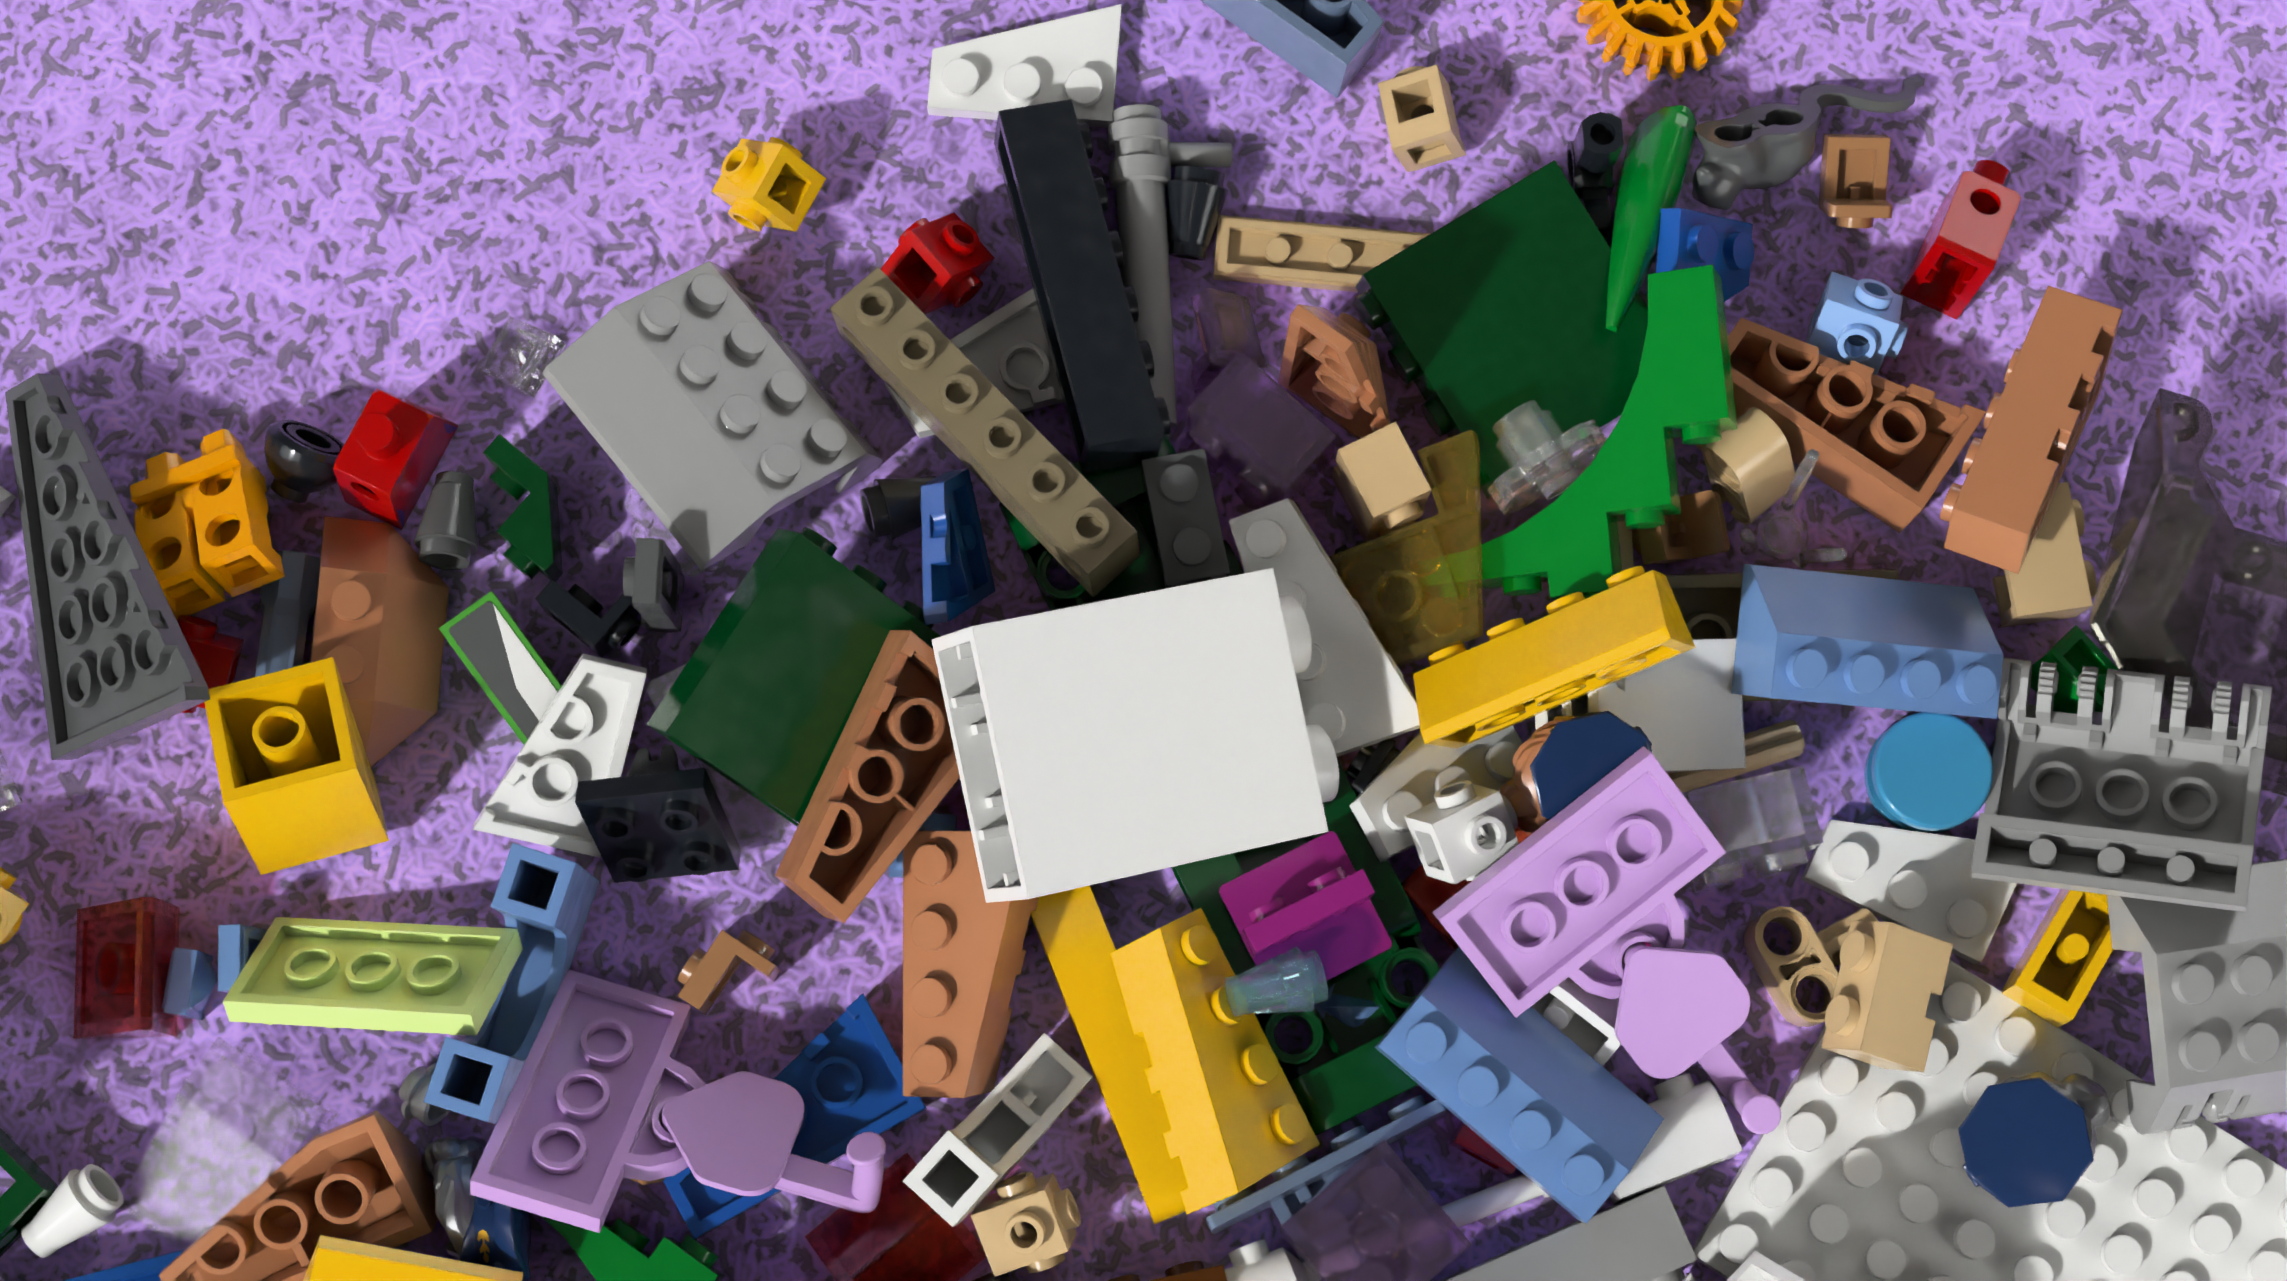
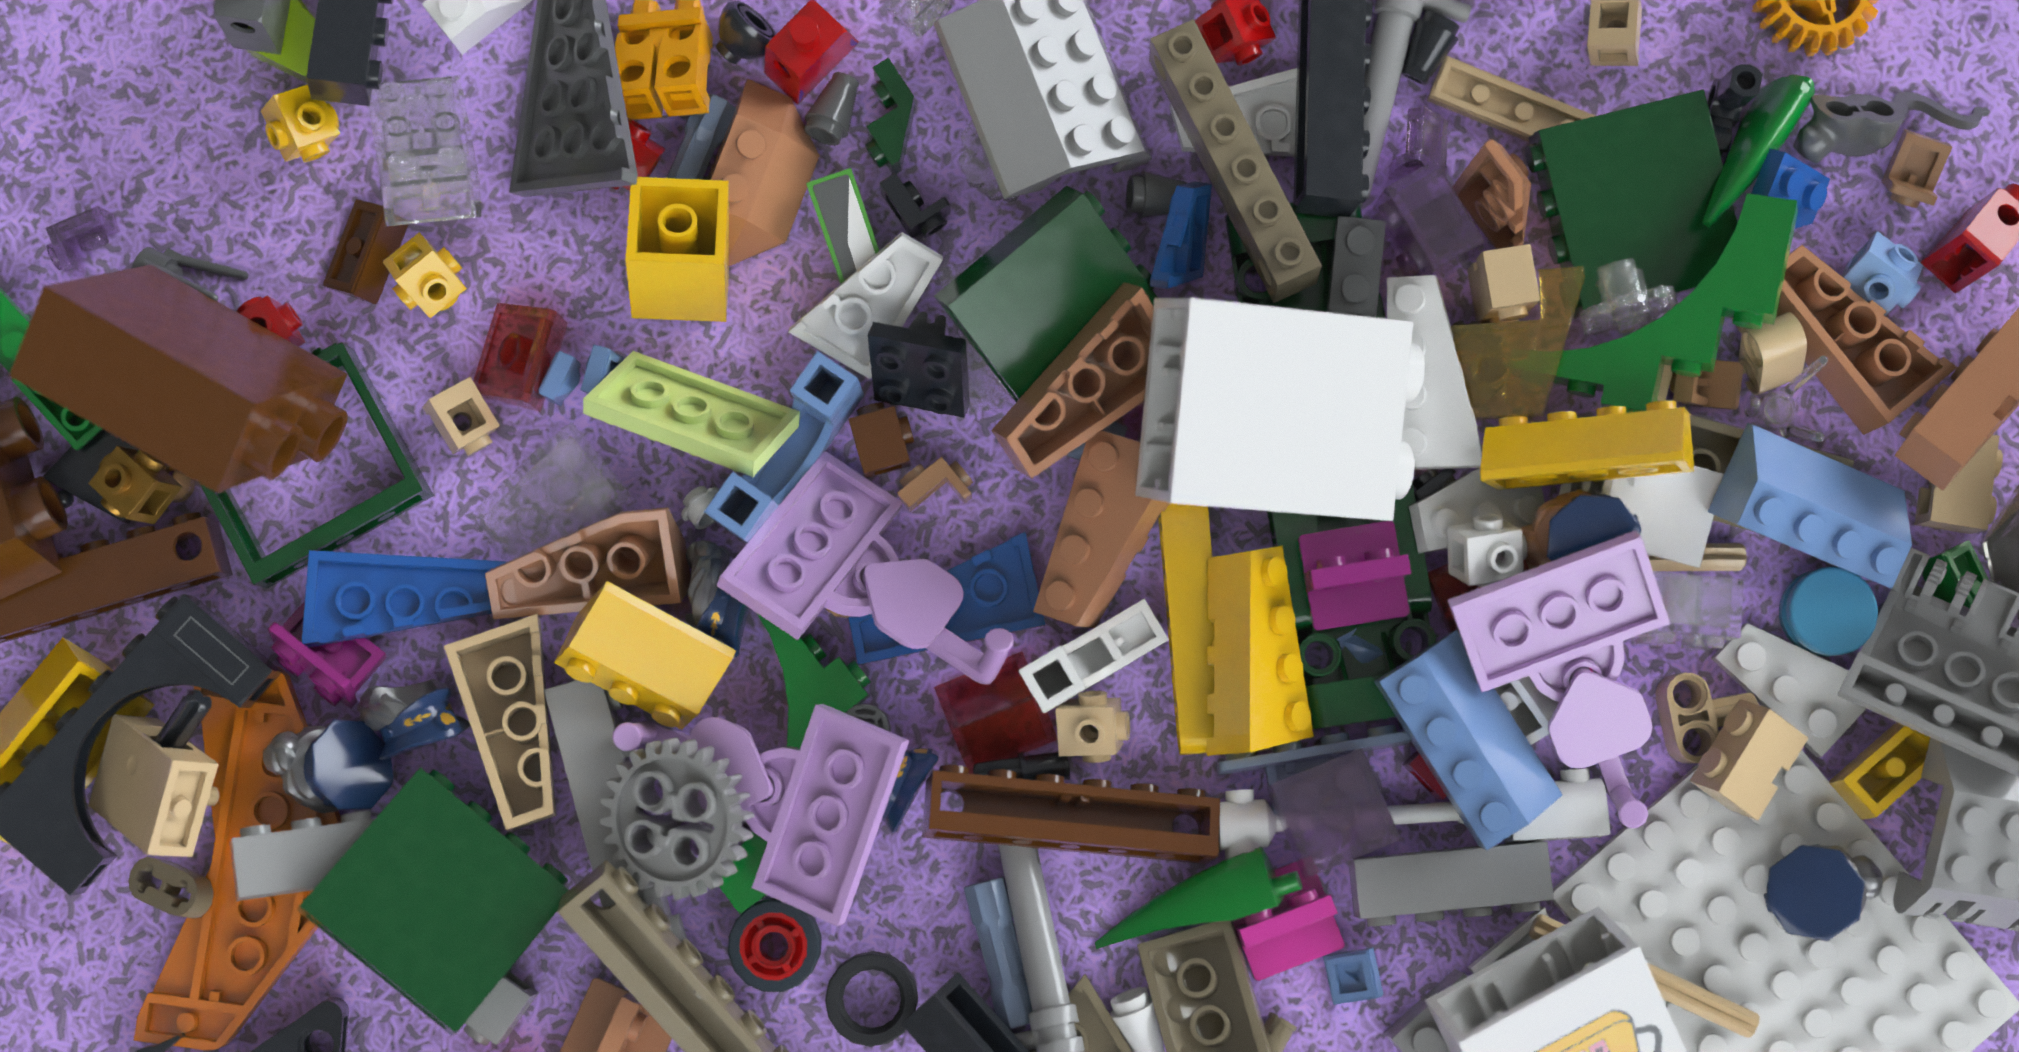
camera: 20 degrees right, 5 degrees up
(65, 1053) = (466, 401): none -> tan brick
(76, 1208) = (440, 509): white cone -> none
(637, 931) = (881, 439): none -> reddish brown brick
(655, 584) = (966, 199): dark grey hinge -> none
(1279, 985) = (1322, 617): clear light blue cone -> none

